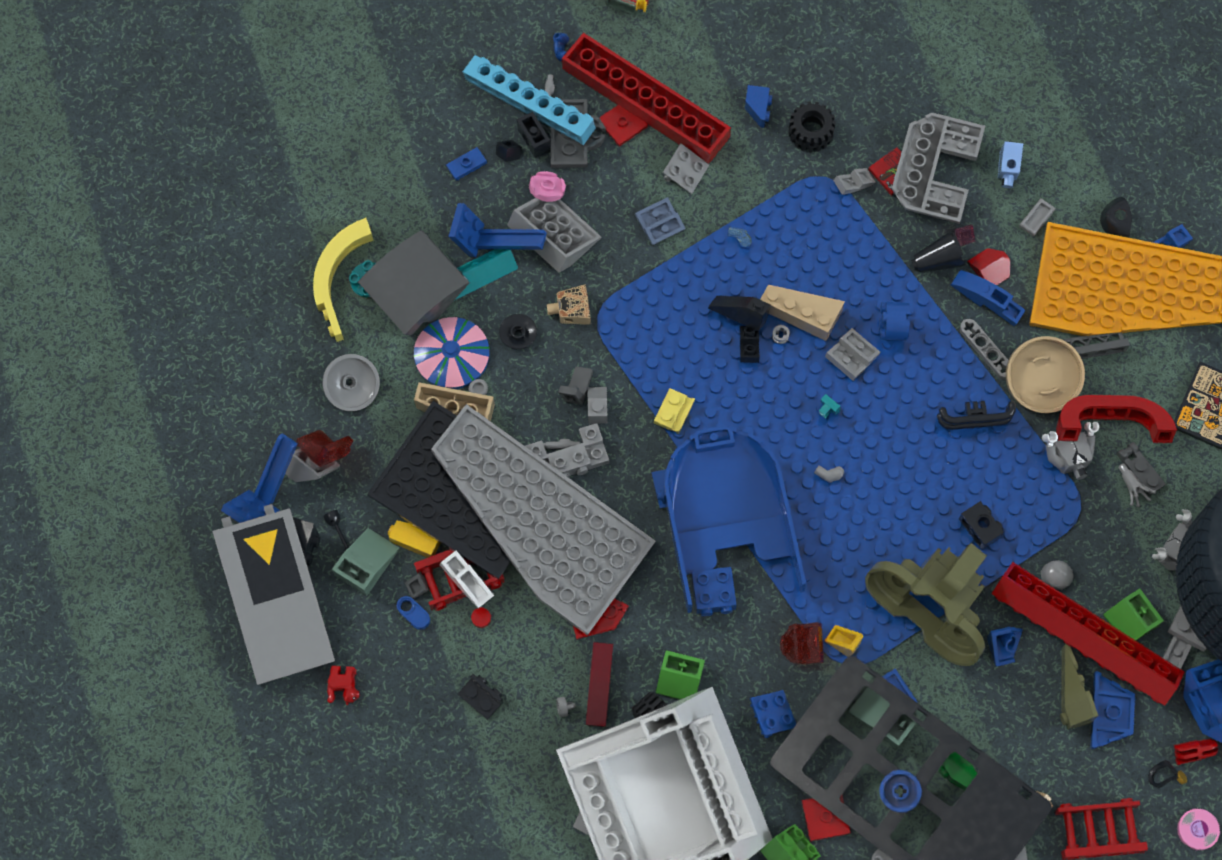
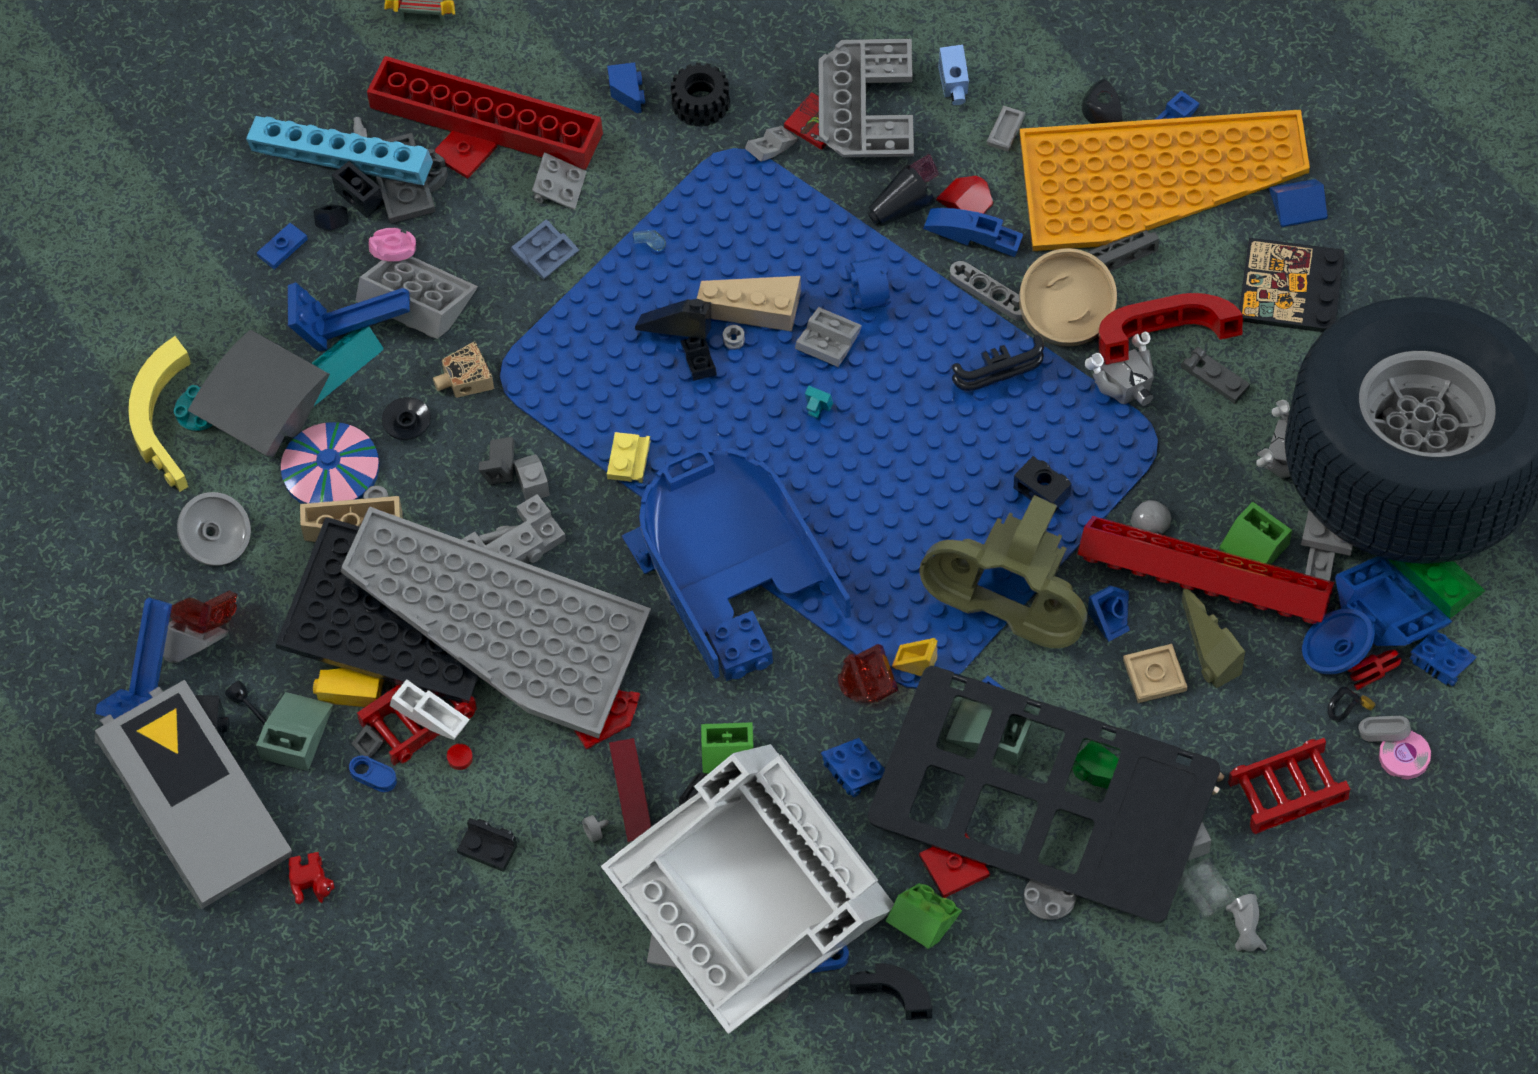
camera: 15 degrees left, 10 degrees down
(560, 41) = (357, 78): blue piece -> none
(830, 475) = (841, 479): light grey arm -> none
(892, 782) = (1038, 813): blue brick -> none
(1024, 704) = (1155, 673): none -> tan plate
(1114, 710) = (1266, 653): blue wing -> none
(1134, 485) = (1213, 394): light grey piece -> none
(1177, 713) = (1338, 641): none -> blue dish
(1189, 804) = (1384, 728): none -> light grey tile

